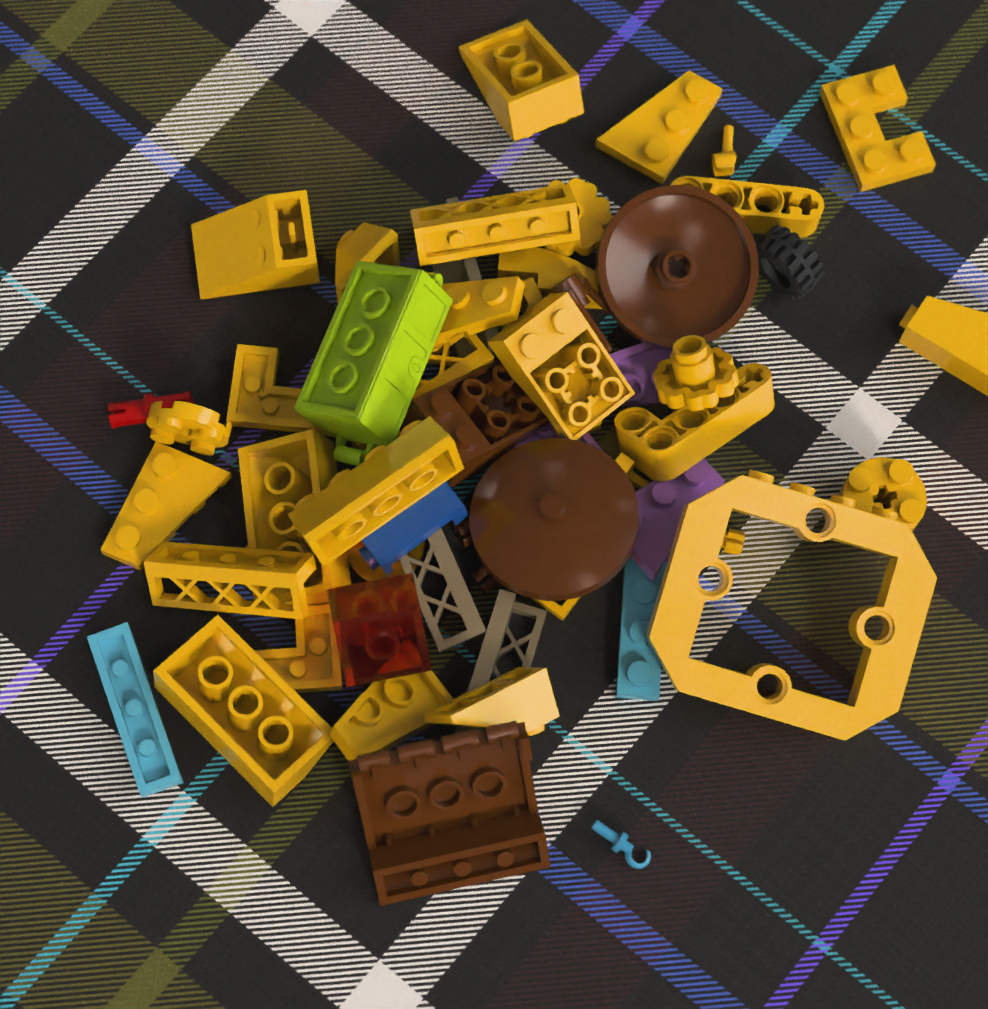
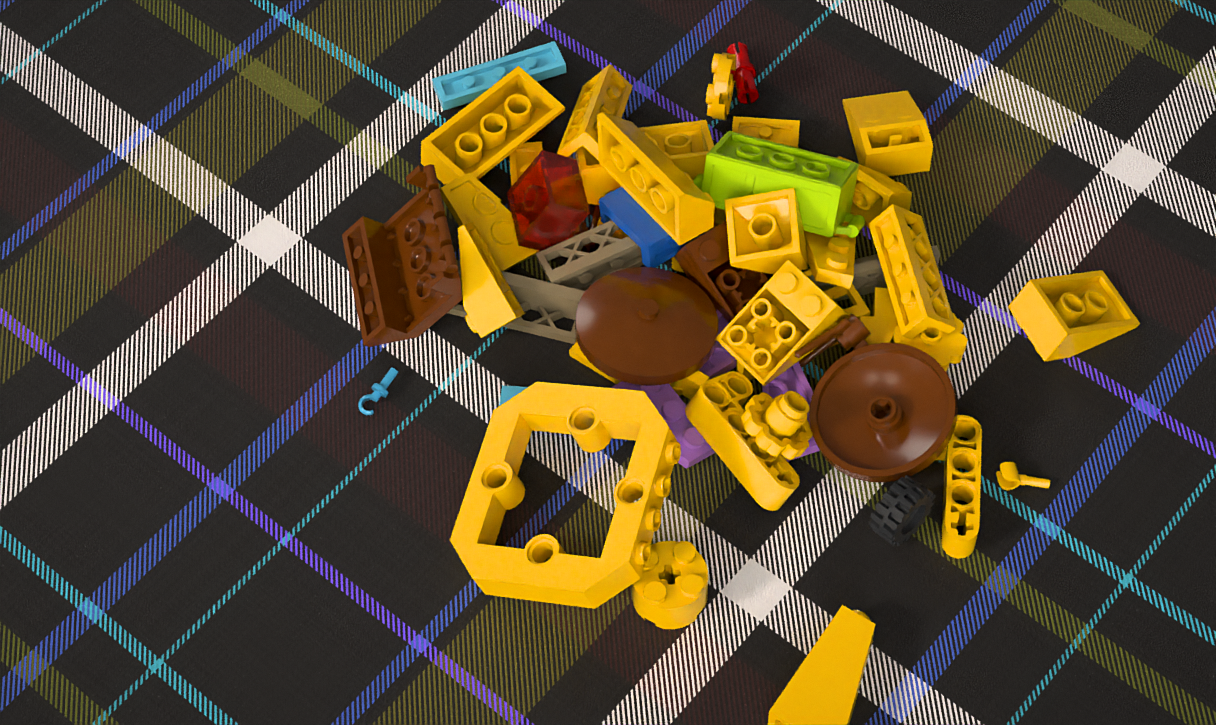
camera: 95 degrees right, 15 degrees down
(160, 501) = (668, 85): yellow wing -> none
(454, 367) = (766, 231): none -> yellow slope
(662, 127) = (1042, 429): yellow wing -> none
(852, 111) = (1032, 601): yellow plate -> none

